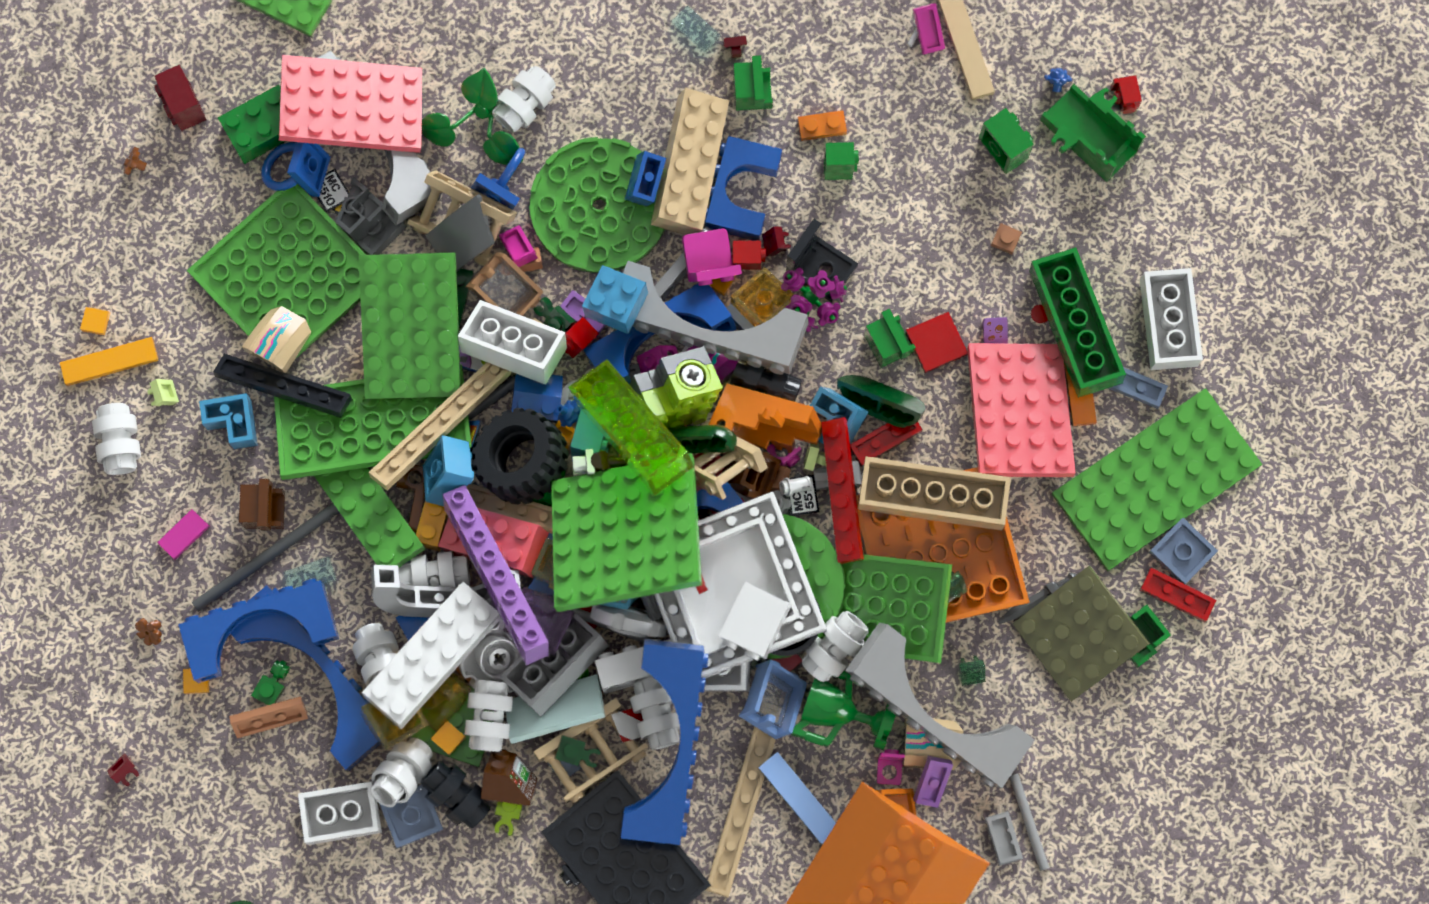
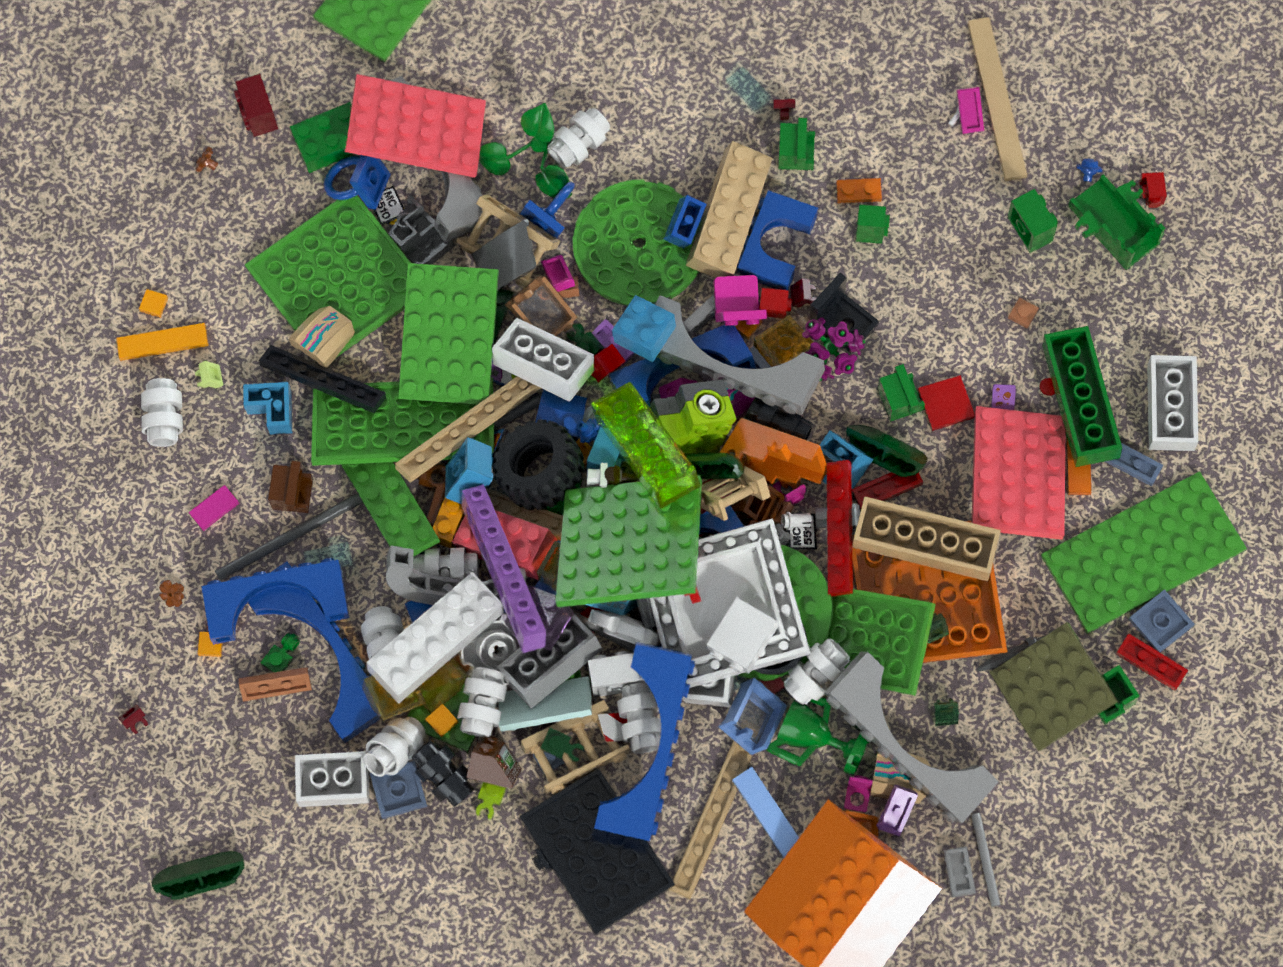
camera: 10 degrees right, 5 degrees down
(814, 456) = (817, 496): yellowish green tile -> none

